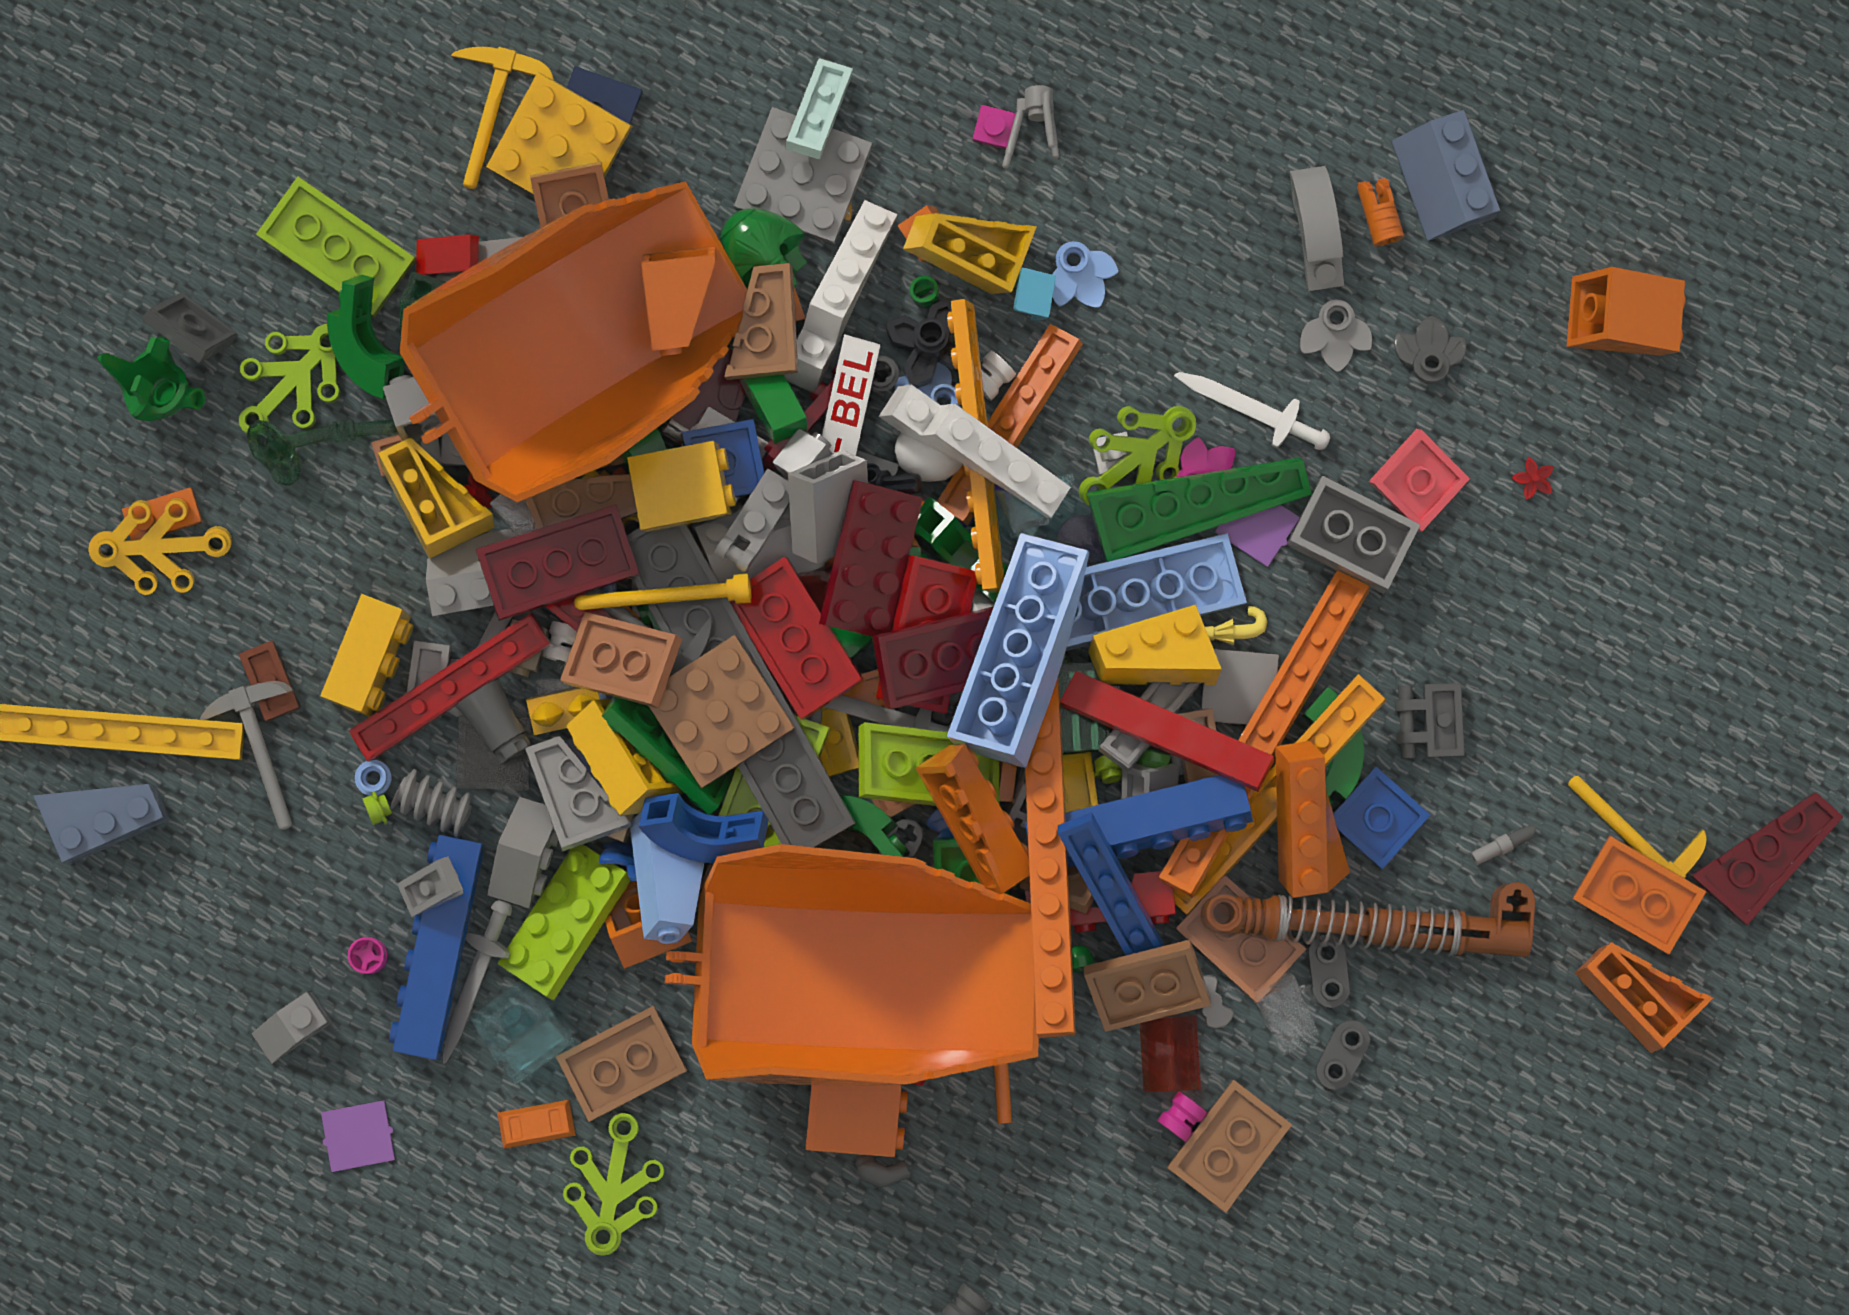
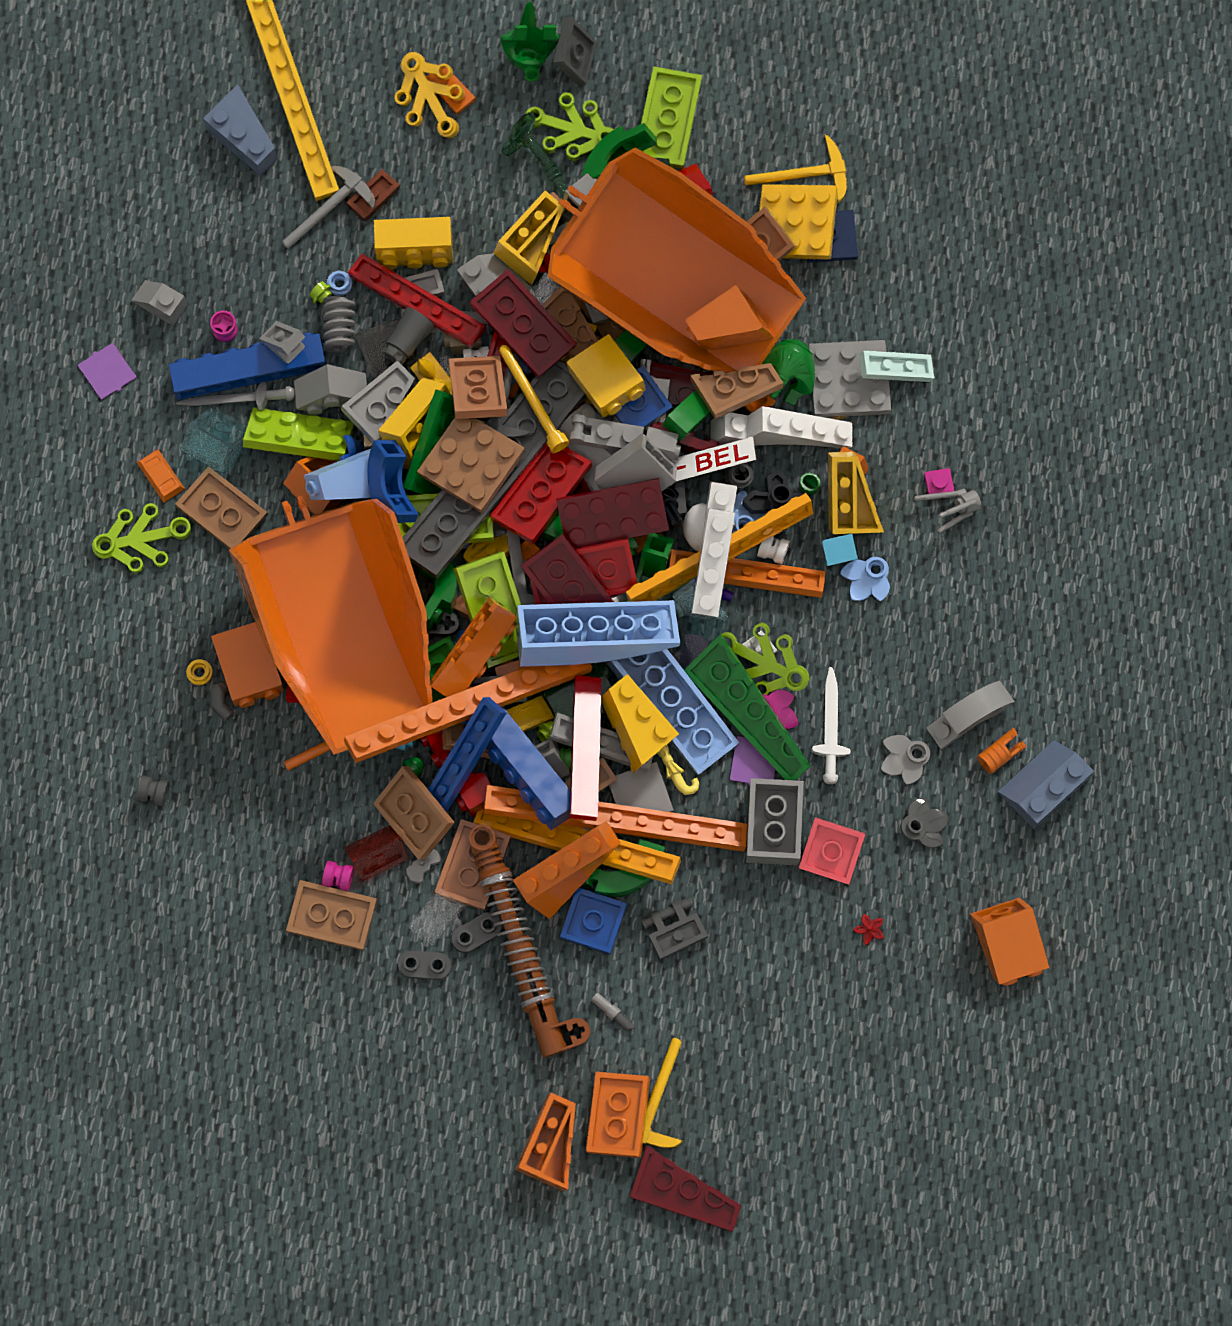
camera: 65 degrees right, 10 degrees down
(839, 1191) = (199, 664): none -> yellow plate

